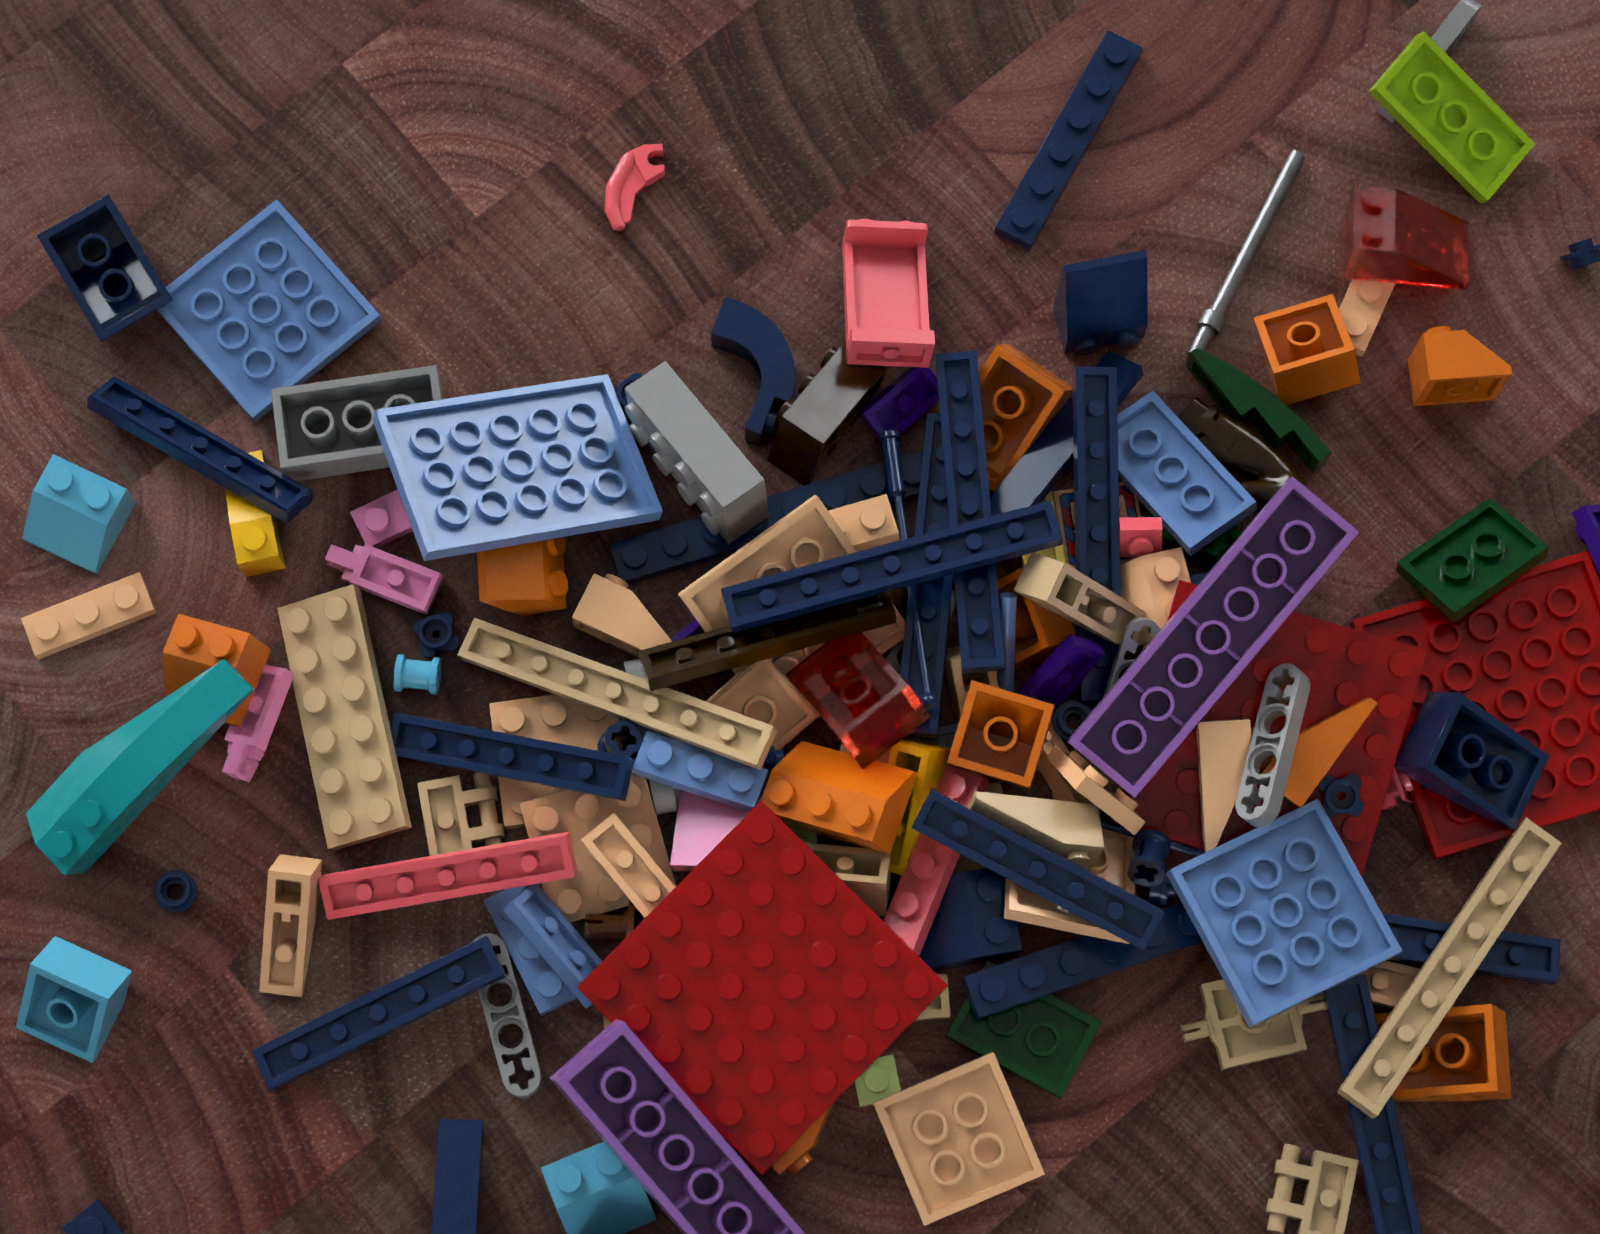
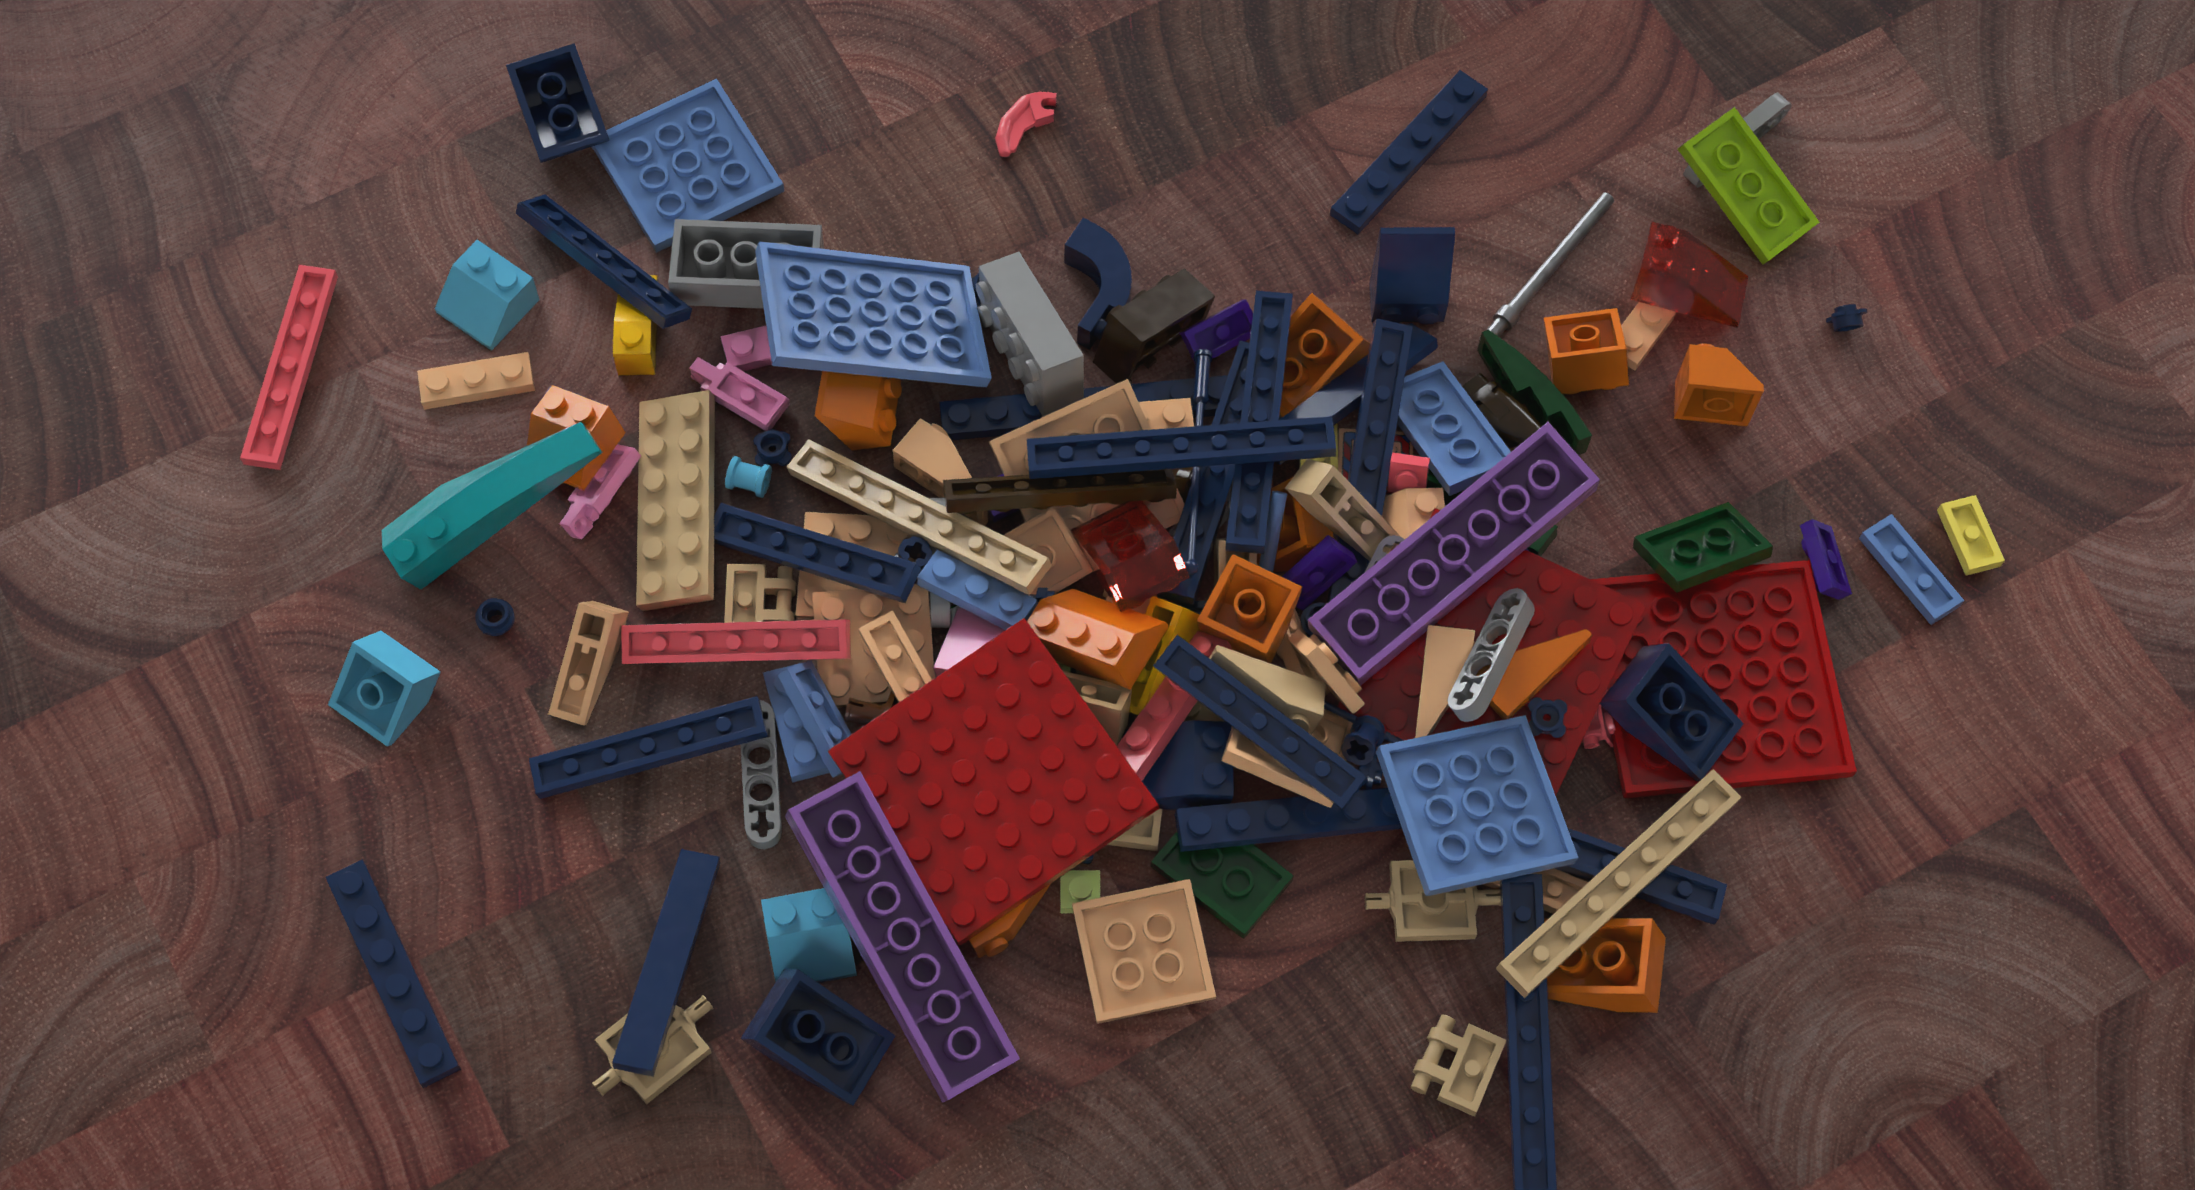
camera: 10 degrees right, 10 degrees down
(886, 294) = (1224, 239): coral panel -> none

